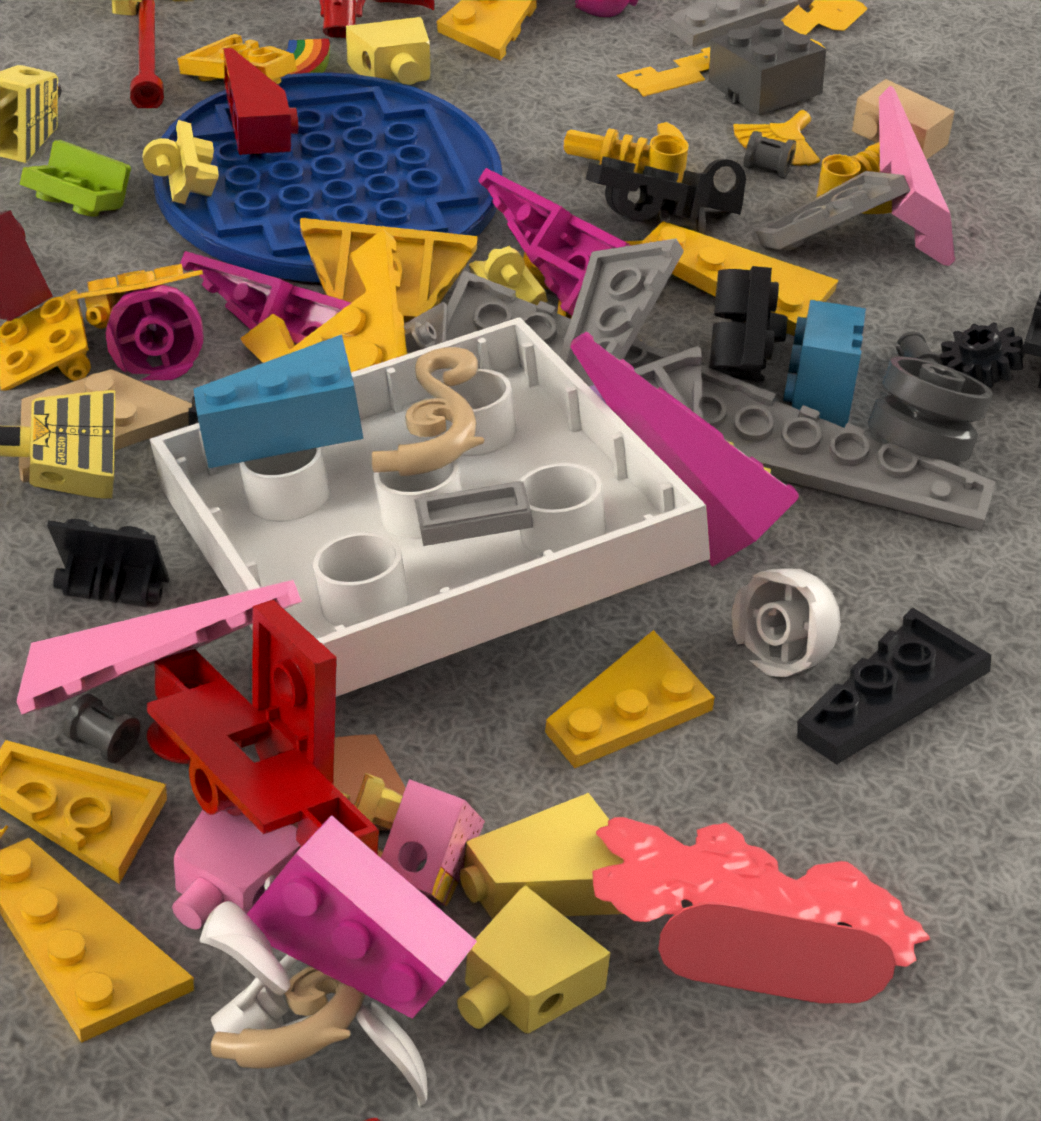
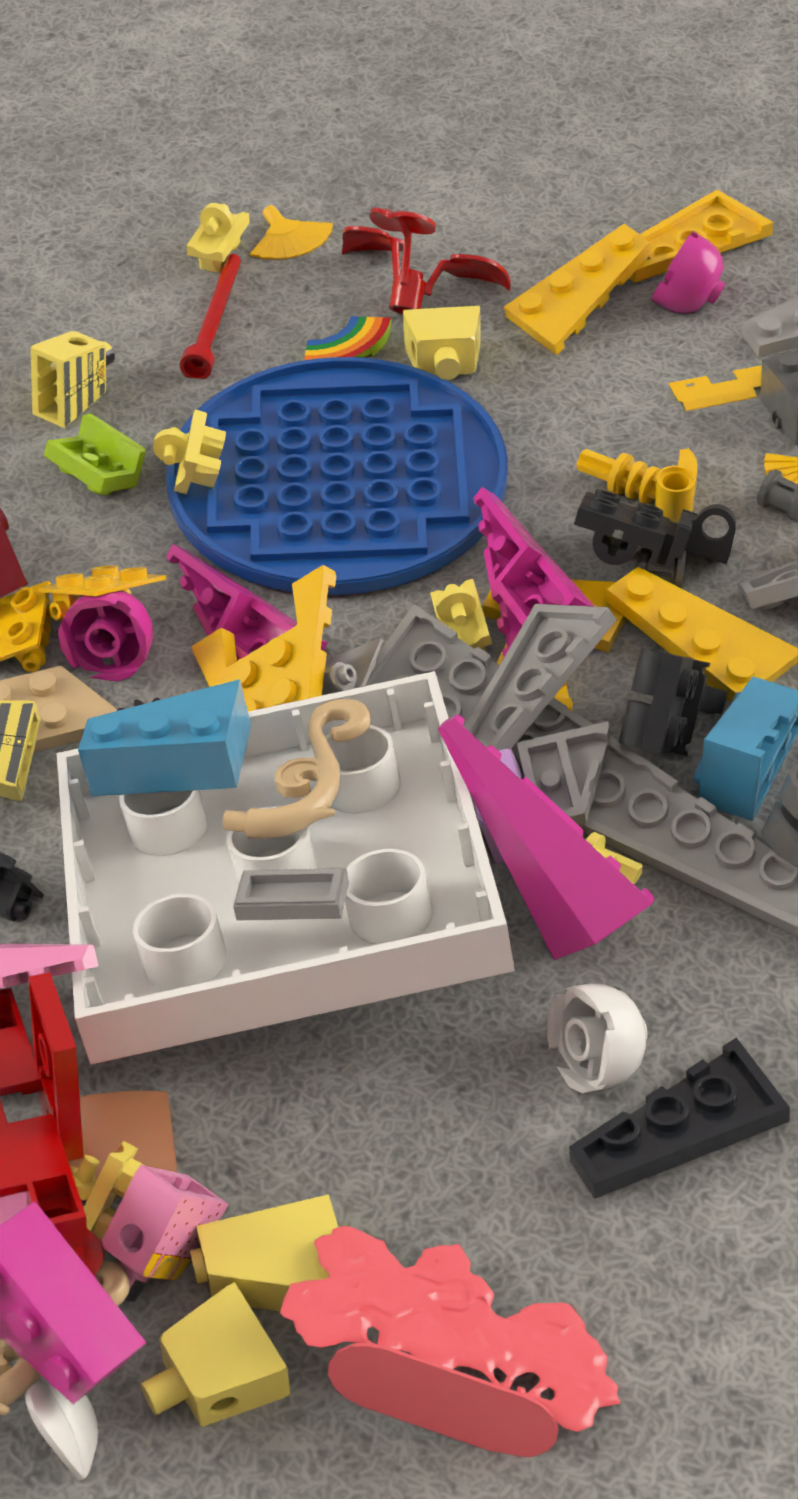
camera: 20 degrees right, 5 degrees up
(209, 60) = (290, 339): yellow wing -> none
(257, 108) = (281, 398): red slope -> none
(425, 261) = (369, 590): yellow wing -> none
(628, 702) = (419, 1096): yellow wing -> none

